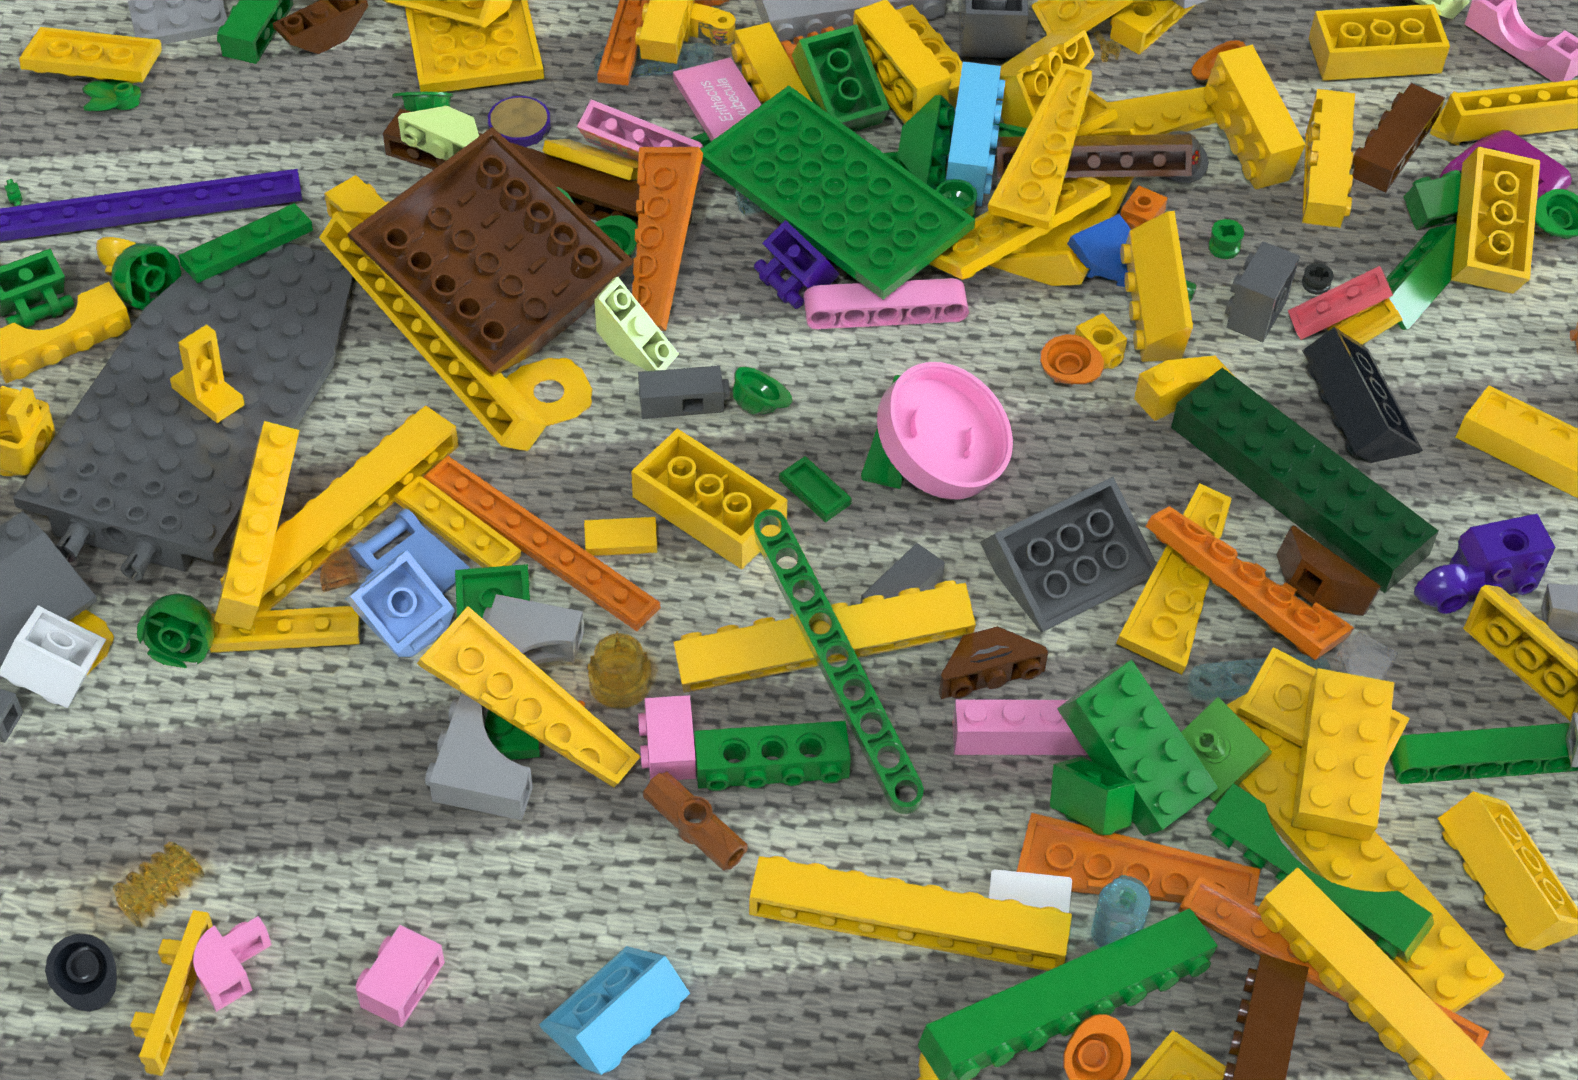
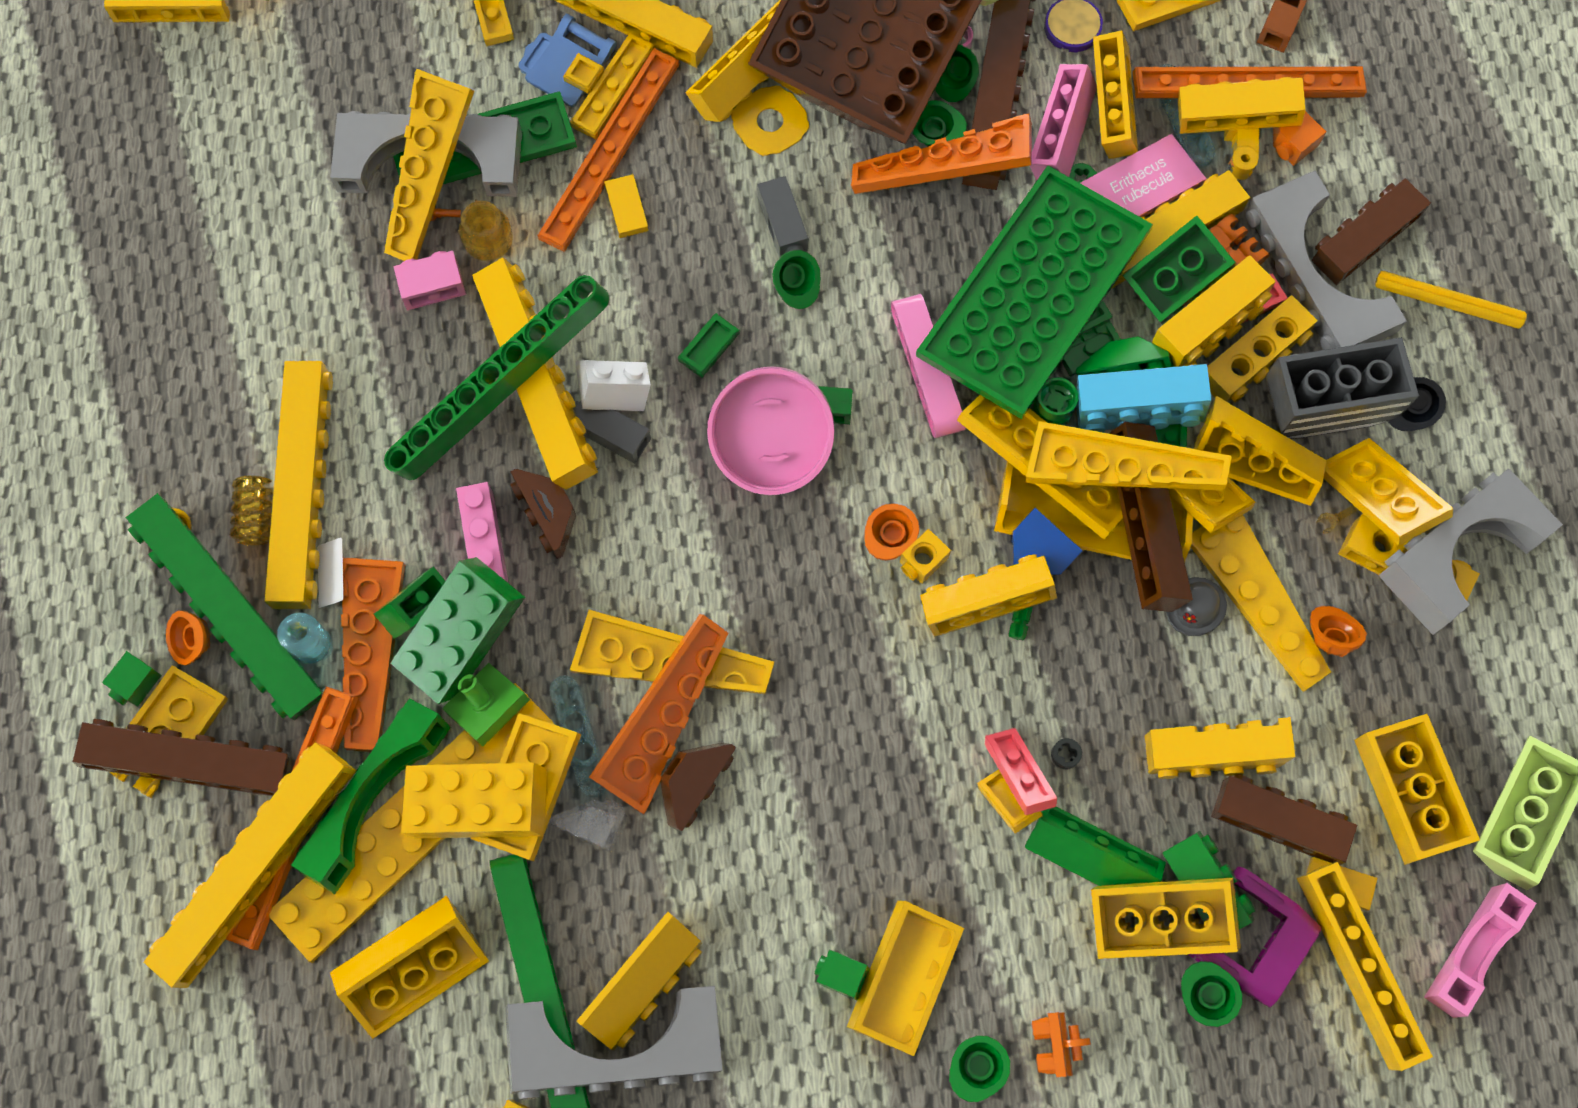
camera: 80 degrees right, 20 degrees up
(220, 959) = (192, 26): bright pink brick -> none
(337, 571) = (550, 13): clear orange tile -> none
(399, 975) = (198, 143): bright pink brick -> none
(402, 606) = (512, 59): light blue slope -> none
(436, 546) = (583, 73): none -> yellow tile
(592, 158) = (1029, 84): yellow tile -> none
(616, 1009) = (189, 291): medium azure slope -> none
(630, 329) = (834, 162): yellowish green slope -> none
(643, 98) = (1115, 95): none -> yellow brick
(705, 496) = (675, 232): yellow brick -> none
(709, 835) = (346, 328): dark orange piece -> none
(785, 742) = (421, 313): green brick -> none
(799, 258) = (945, 277): dark purple brick -> none
(855, 562) = (613, 385): none -> white slope
(939, 967) = (248, 510): none -> clear yellow piece
(1071, 555) = (673, 560): dark grey slope -> none
(1142, 207) = (1100, 576): orange brick -> none
(1172, 380) = (897, 638): yellow slope -> none
(1226, 239) = (1088, 665): green wheel -> none
(1253, 117) = (1246, 662): yellow brick -> none
(1261, 291) = (1016, 693): dark grey brick -> none
(1304, 479) = (800, 754): dark green brick -> none
(1359, 398) = (915, 804): black slope -> none
(1495, 554) = (720, 920): dark purple brick -> none
(1534, 484) = (841, 974): none -> green brick

